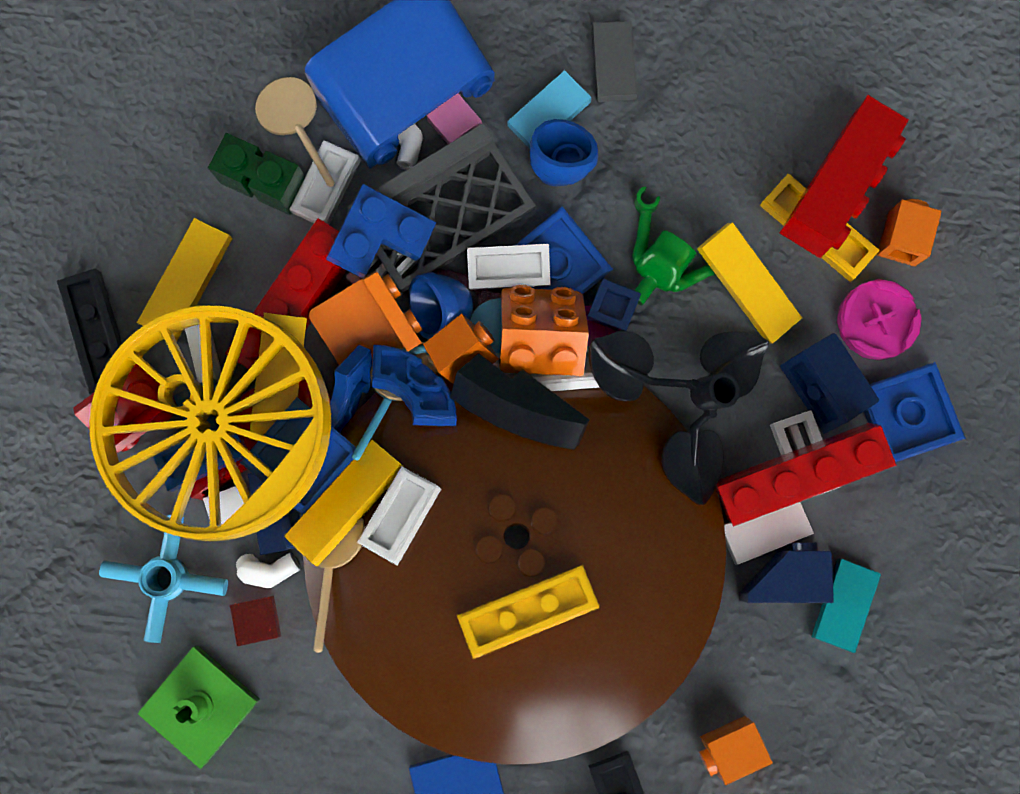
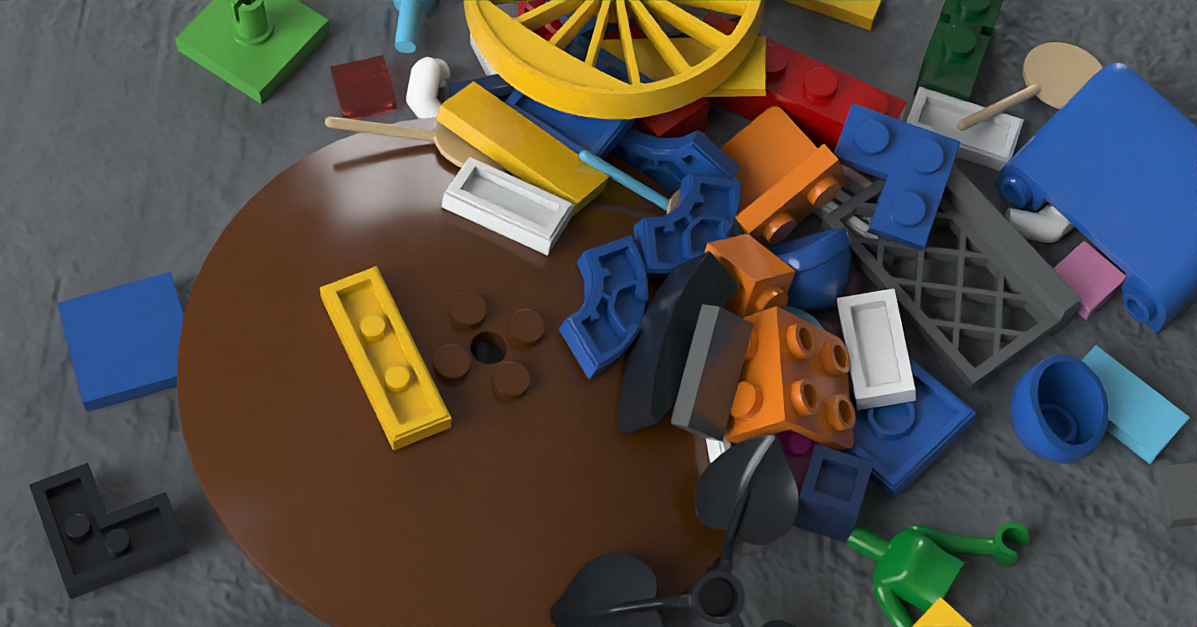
camera: 80 degrees right, 20 degrees down
(484, 445) = (611, 307): none -> blue tile
(550, 379) = (712, 373): none -> dark grey tile

